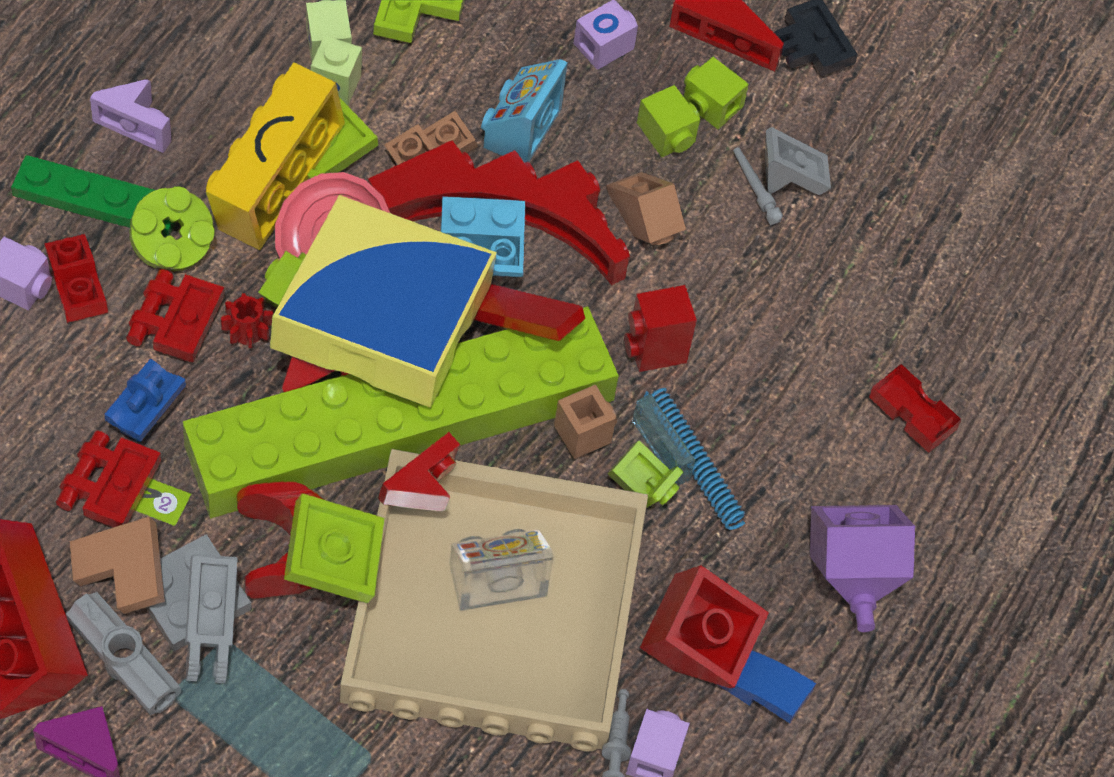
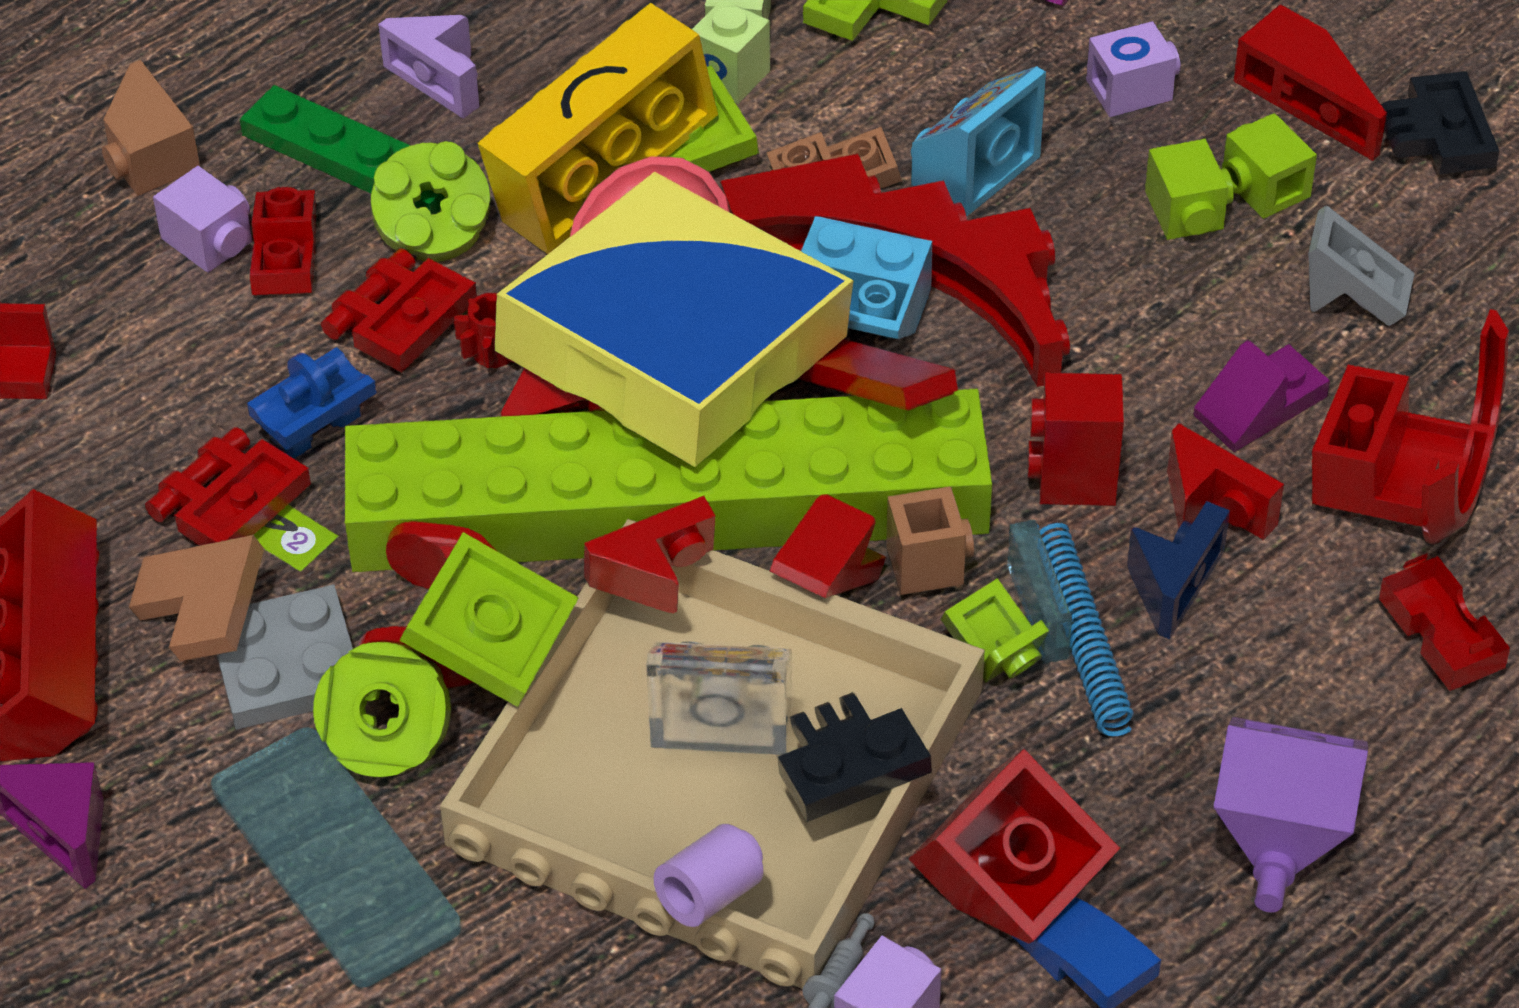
camera: 25 degrees right, 10 degrees down
(138, 672) = (158, 709): light grey piece -> none
(210, 612) = (285, 683): light grey hinge -> none
(295, 638) = (353, 734): none -> lime plate
(529, 445) = (830, 549): none -> red slope
(533, 697) = (709, 874): none -> lavender brick
(590, 590) = (850, 757): none -> black hinge
(648, 207) = (1120, 293): nougat slope -> none
(739, 408) = (1174, 572): none -> dark blue slope
(743, 334) = (1206, 472): none -> red slope
(756, 265) = (1259, 394): none -> magenta slope
(764, 198) = (1302, 314): light grey piece -> none
(865, 298) = (1407, 464): none -> red piece

